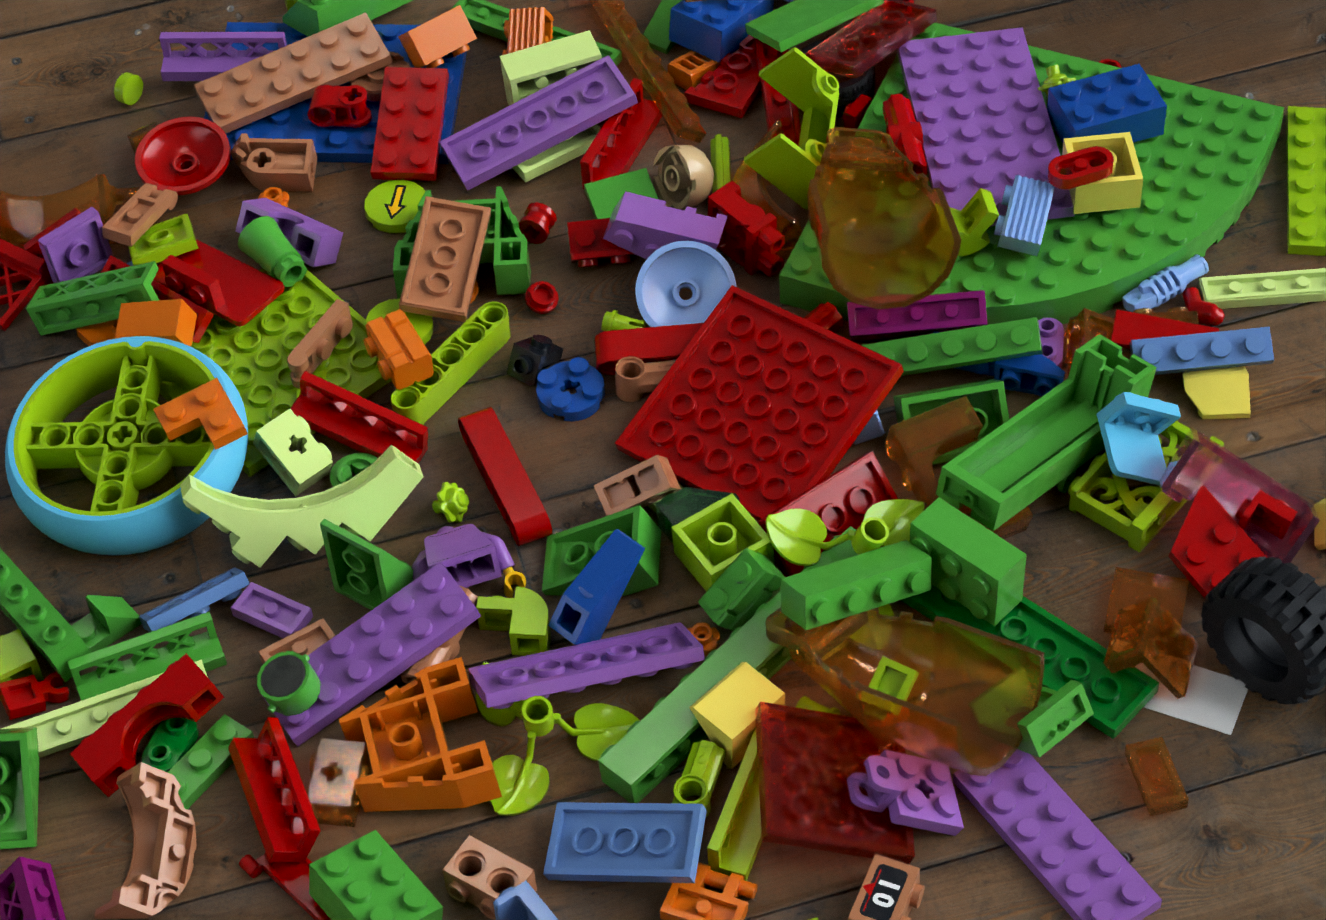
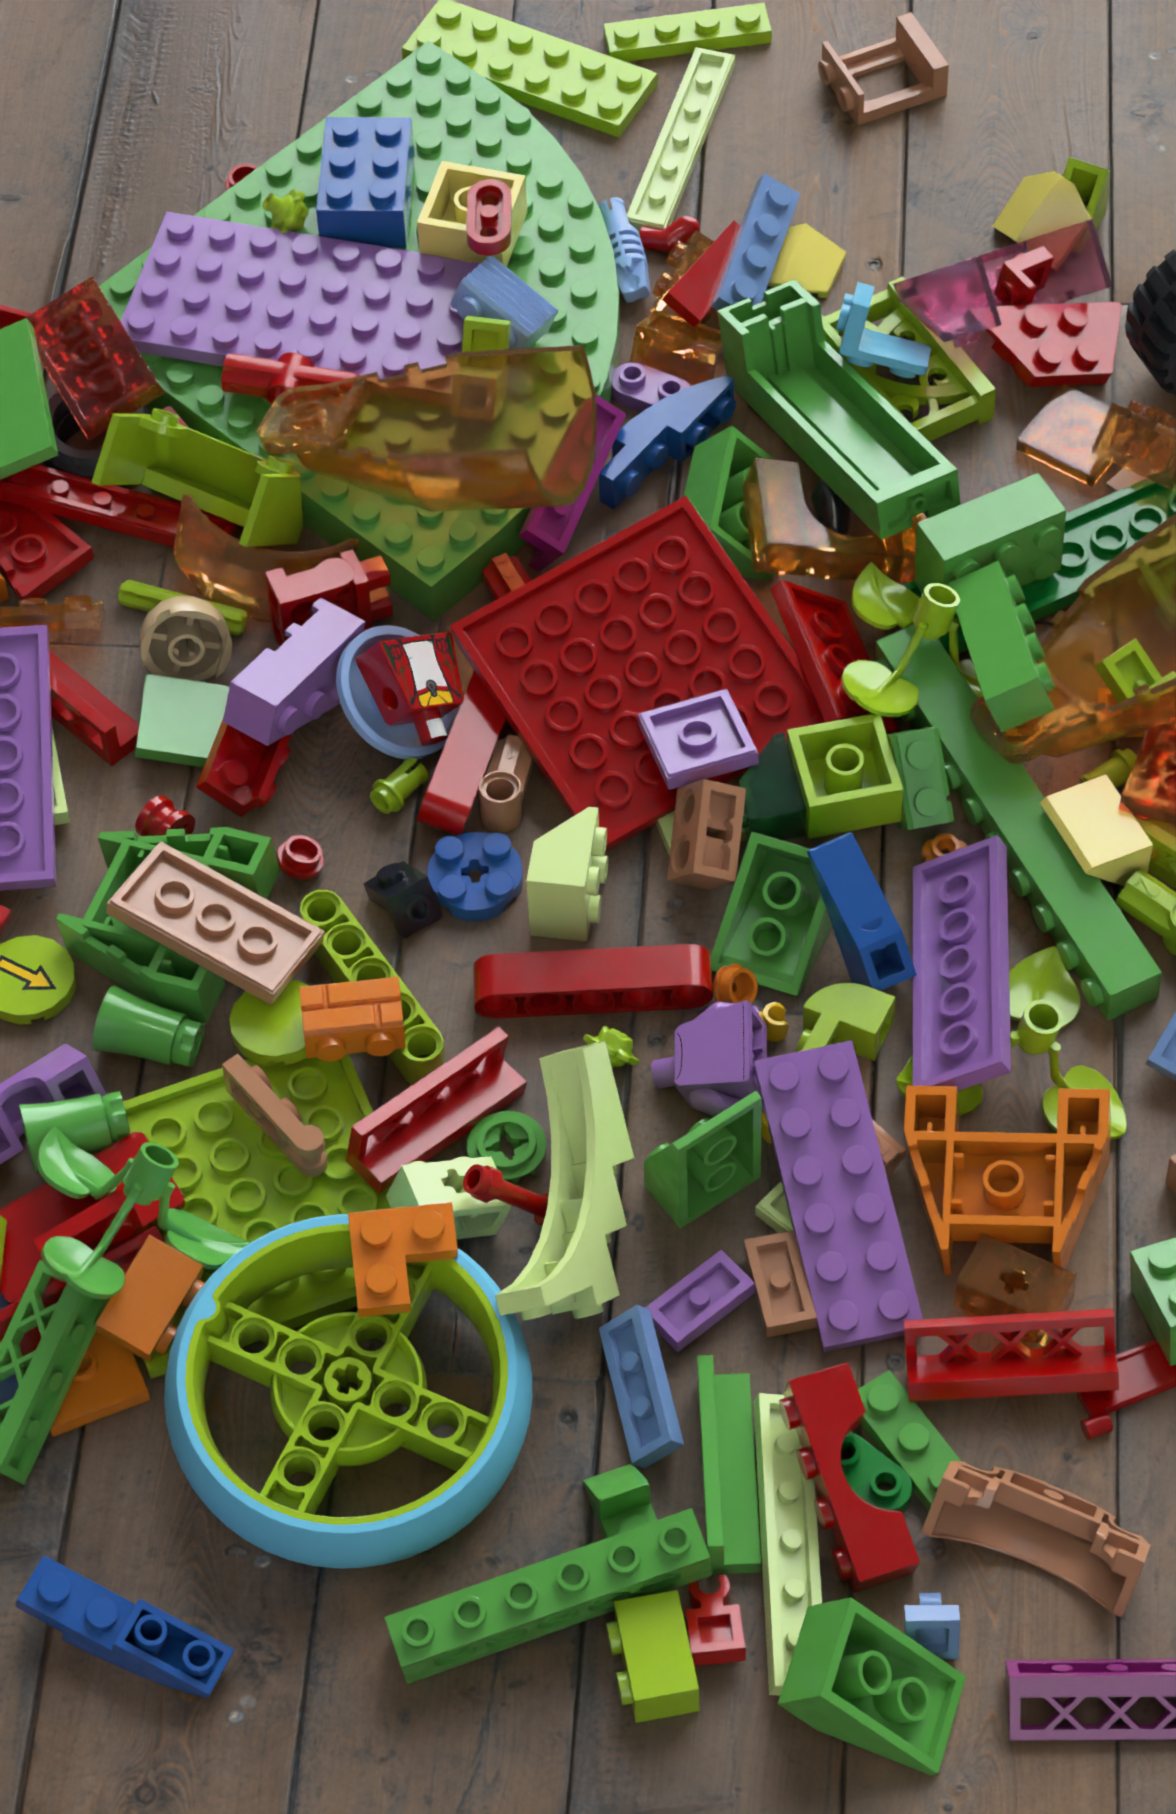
camera: 70 degrees left, 5 degrees up
(58, 810) = (934, 1625): none -> medium blue tile
(229, 262) = (145, 1180): none -> bright green plant
(288, 683) = (860, 1290): piece -> none
(291, 455) = (488, 1184): none -> red bar
(372, 265) = (146, 1030): none -> bright green plant
(522, 553) = (734, 984): none -> orange plate
(573, 426) = (566, 878): none -> yellowish green slope
(686, 290) = (414, 682): none -> red torso
(709, 452) = (698, 739): none -> medium lavender tile
(963, 346) = (645, 450): bright green plate -> none

